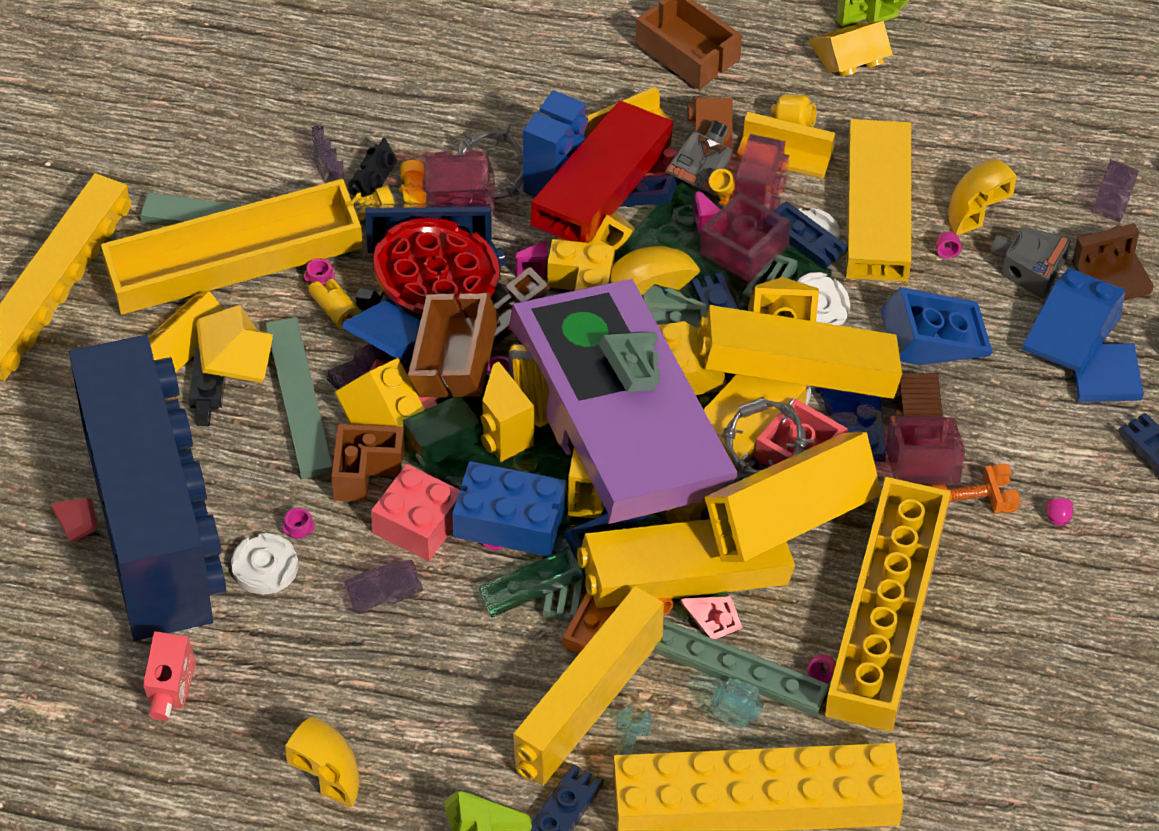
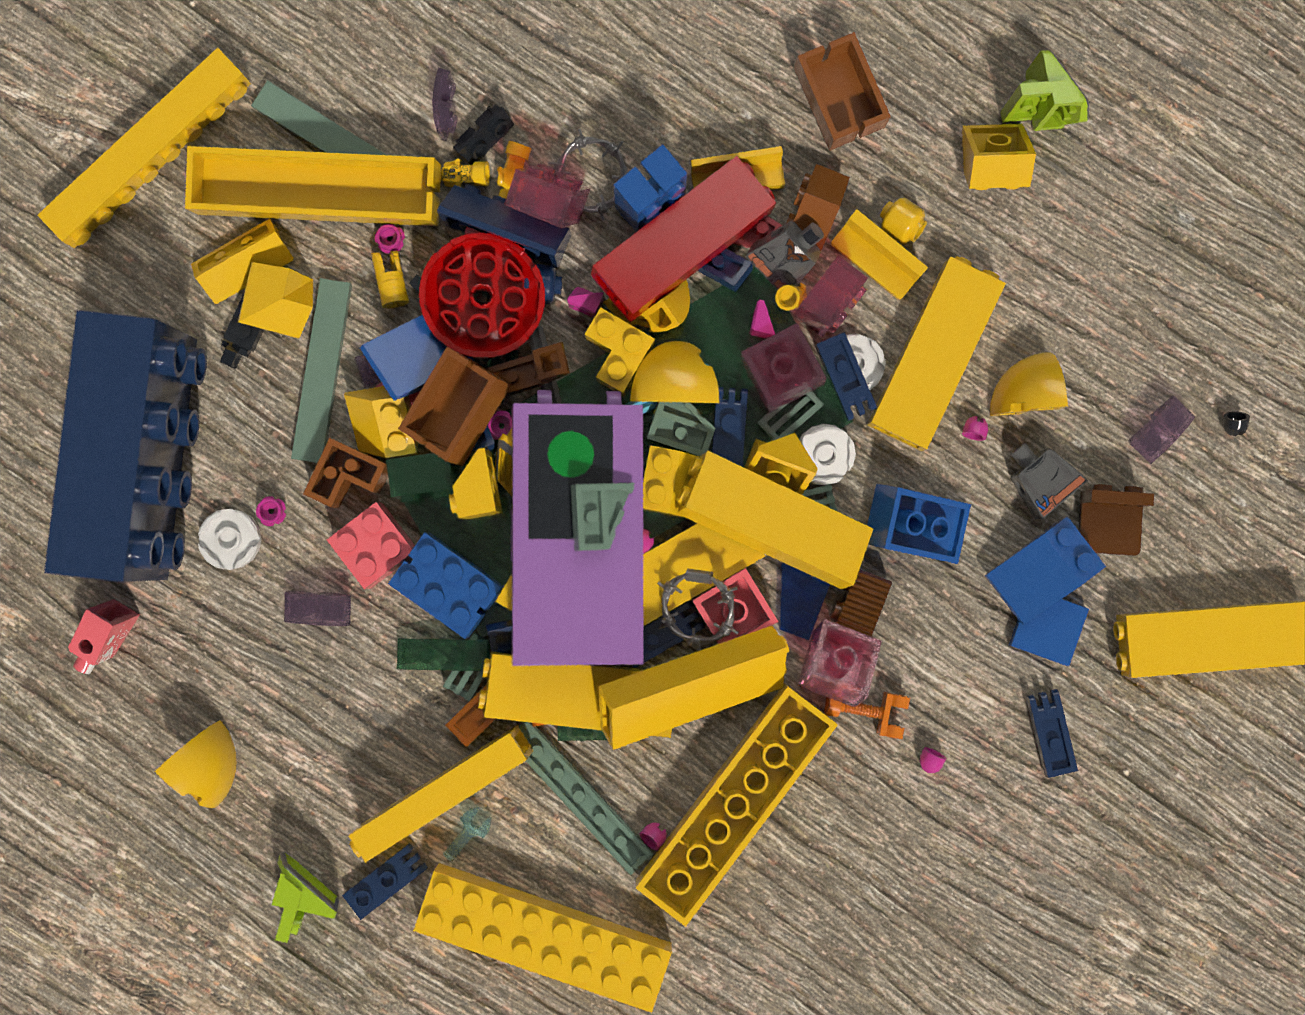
camera: 20 degrees right, 35 degrees up
(713, 615) = (583, 750): piece -> none
(736, 702) = (564, 845): clear light blue head -> none

